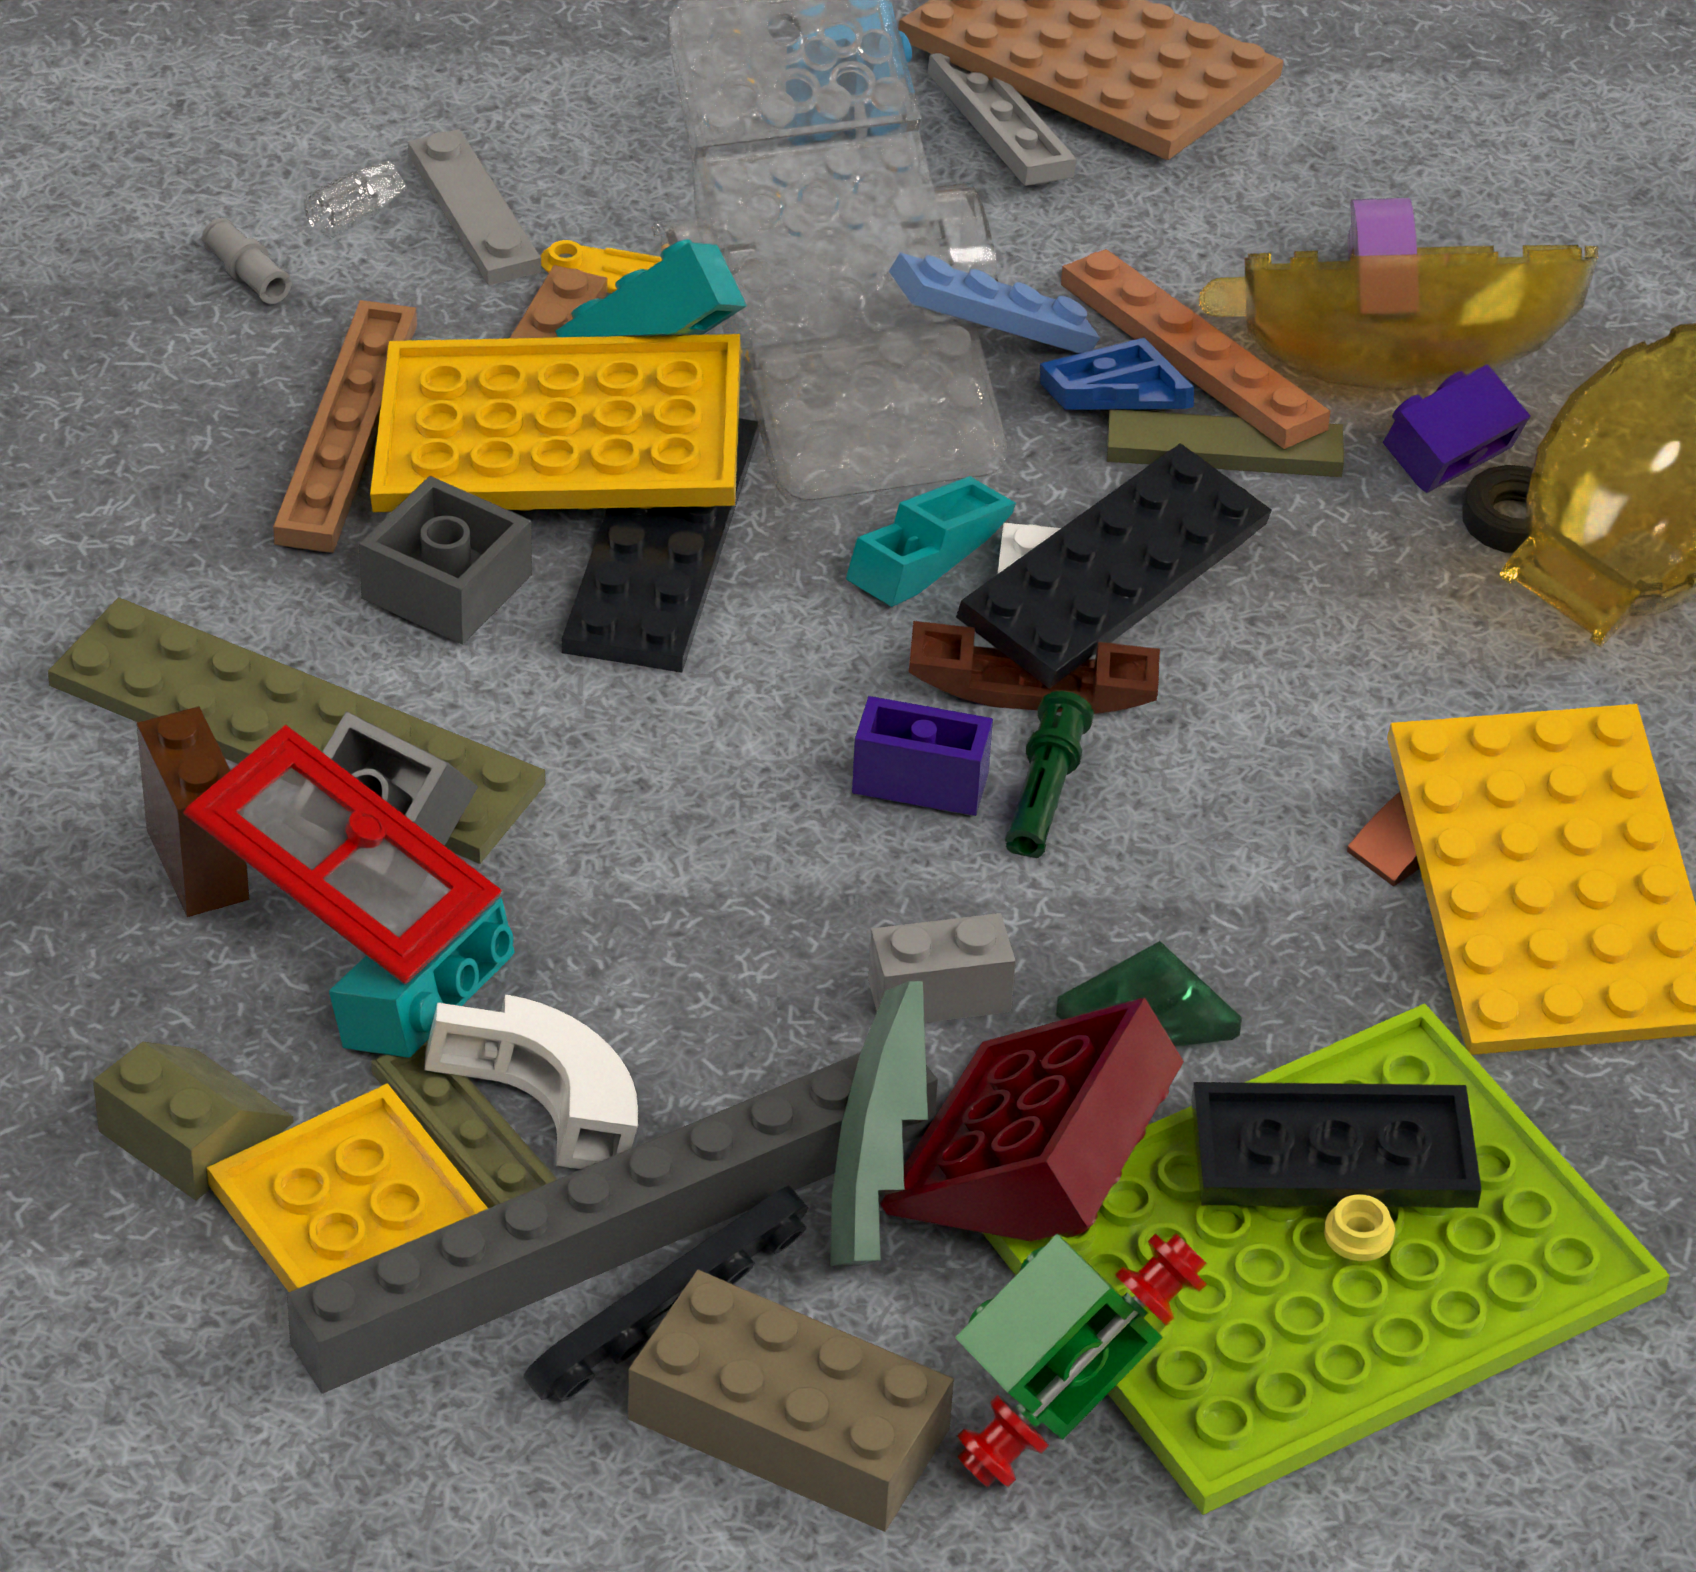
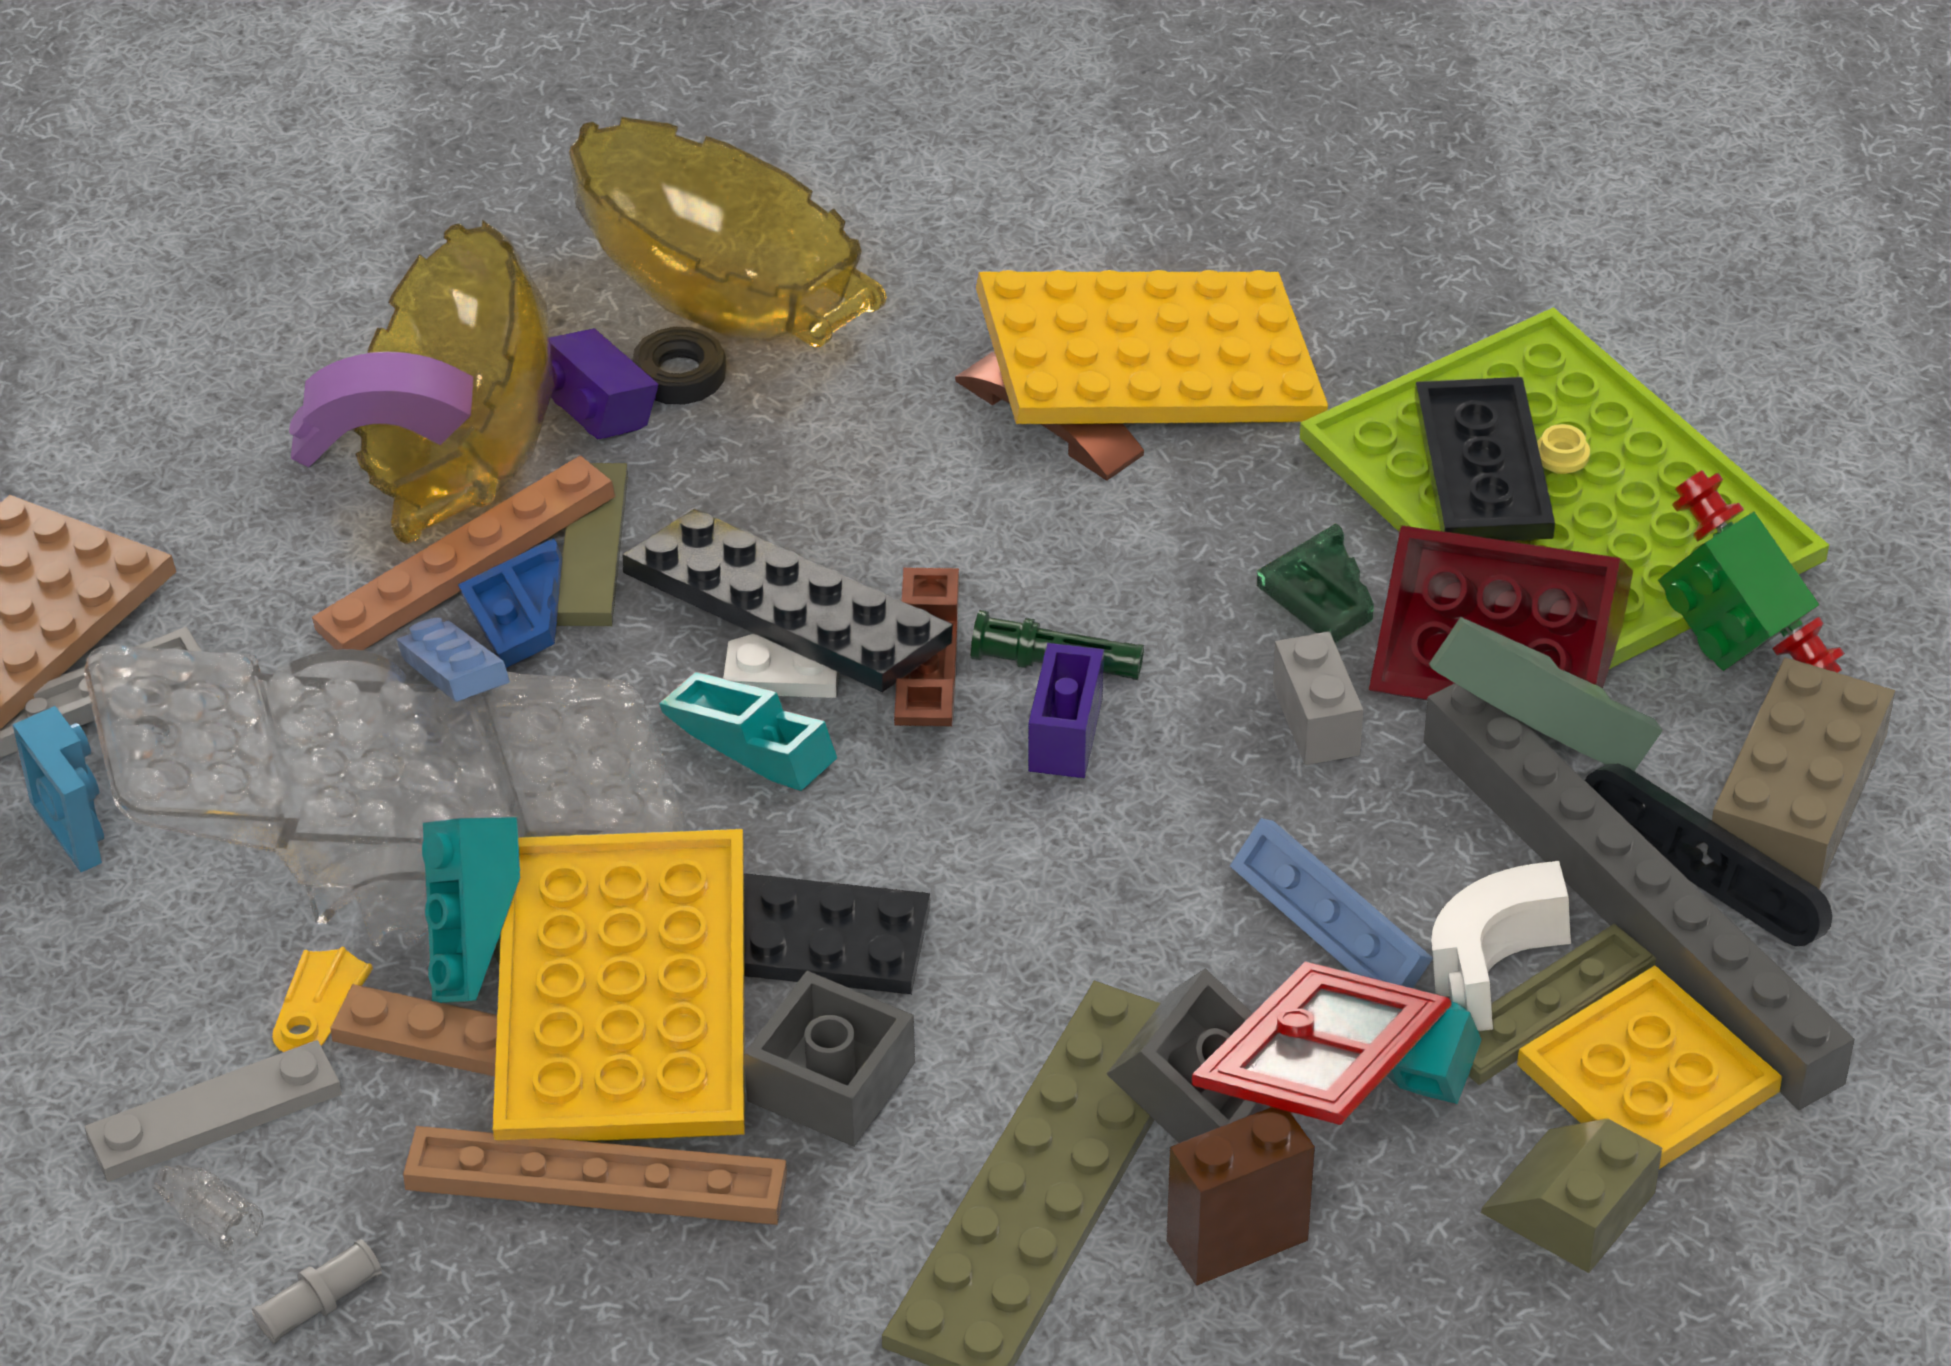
camera: 90 degrees left, 0 degrees up
(640, 948) = (1328, 908): none -> medium blue plate

